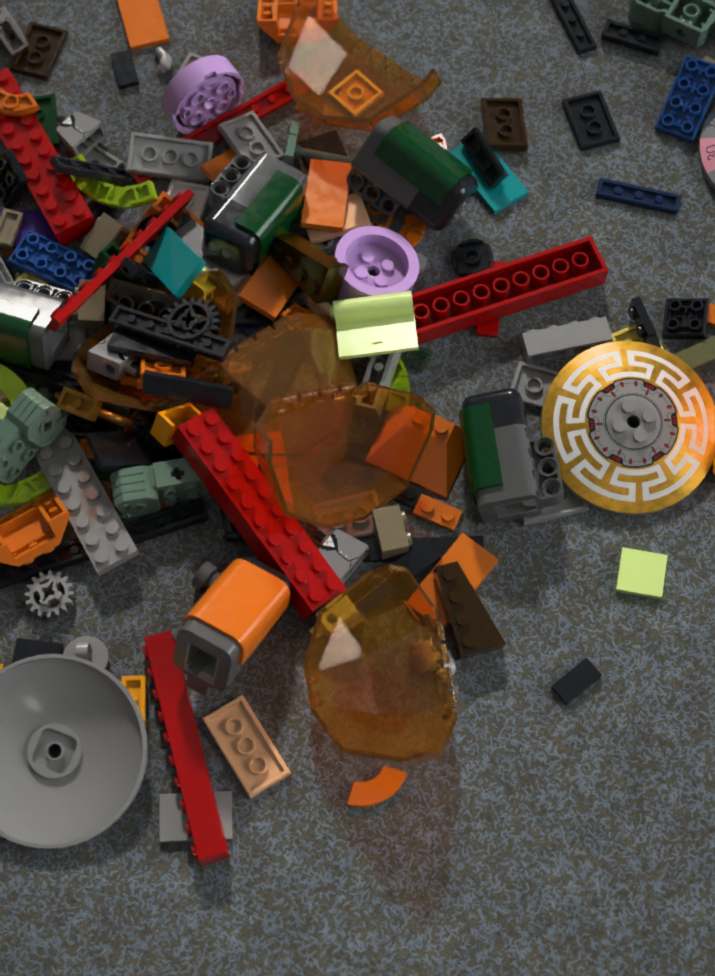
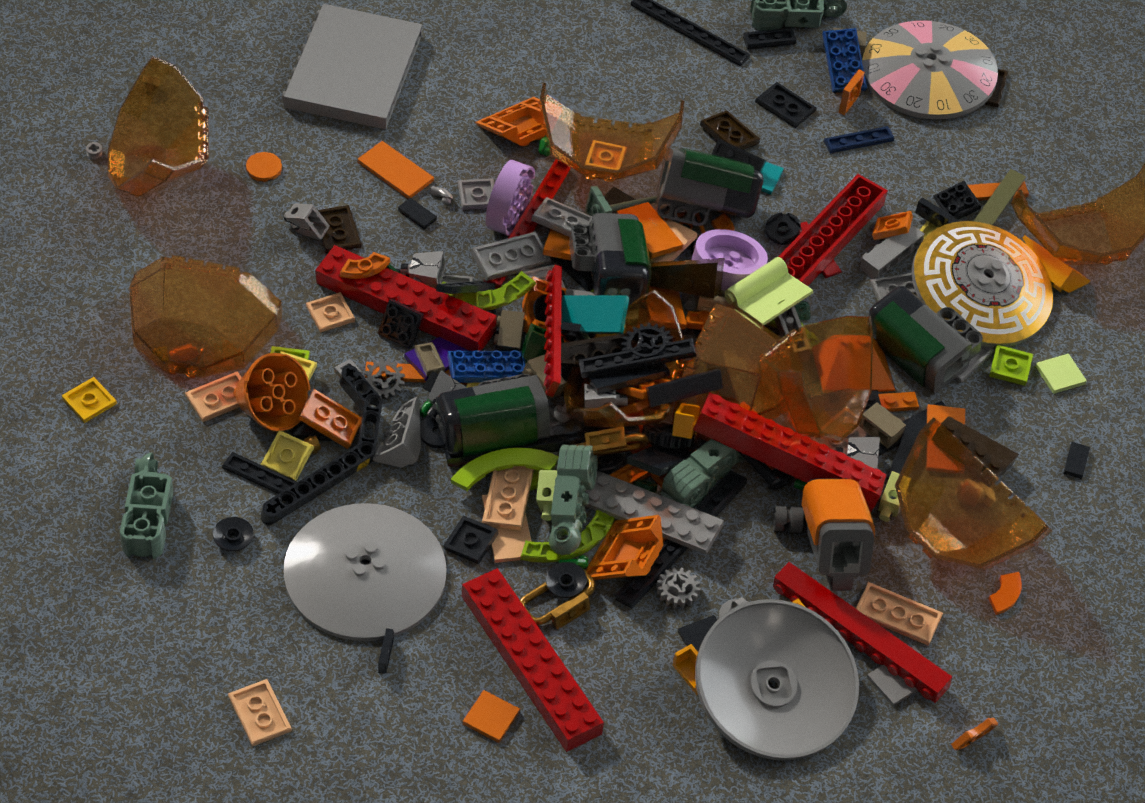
camera: 40 degrees left, 15 degrees down
(210, 925) = (975, 733): none -> orange tile
(586, 312) = (892, 225): none -> orange tile
(591, 535) = (1011, 365): none -> lime plate
(664, 138) = (851, 92): none -> orange tile

